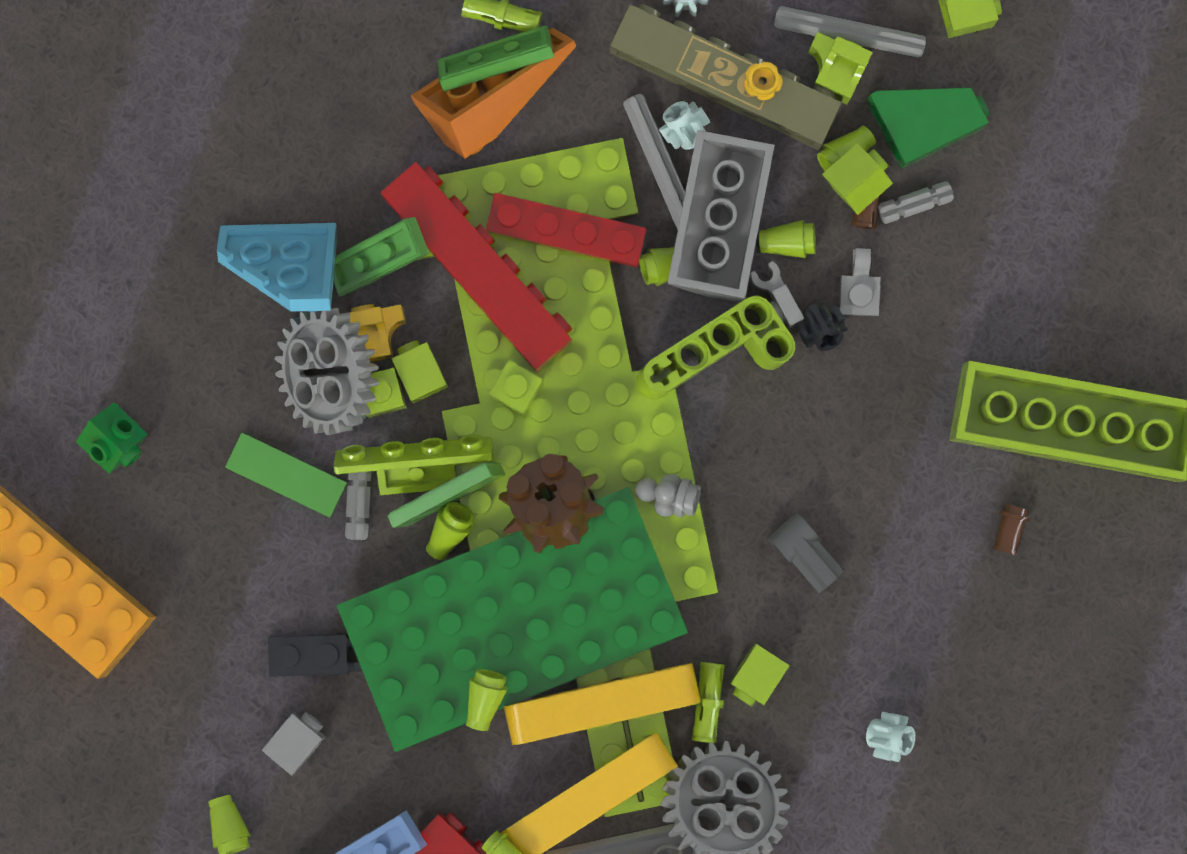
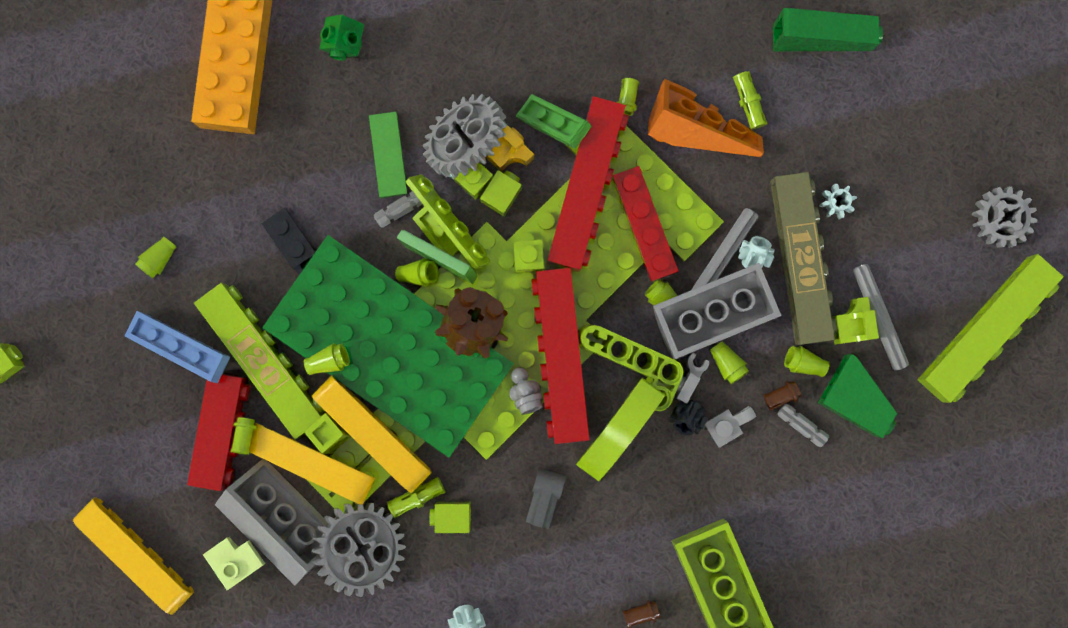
camera: 60 degrees right, 0 degrees up
(283, 261) = (514, 68): medium azure plate -> none
(295, 741) = (231, 264): light grey brick -> none
(402, 150) = (628, 95): none -> lime pin
(430, 780) = (259, 358): none -> lime brick
(495, 58) = (721, 113): bright green tile -> none
(569, 755) = (327, 434): none -> lime brick
(655, 425) = (561, 355): none -> red brick
(763, 70) = (823, 282): yellow plate -> none
(785, 414) = (621, 429): none -> lime slope
(858, 177) = (795, 380): lime brick -> none

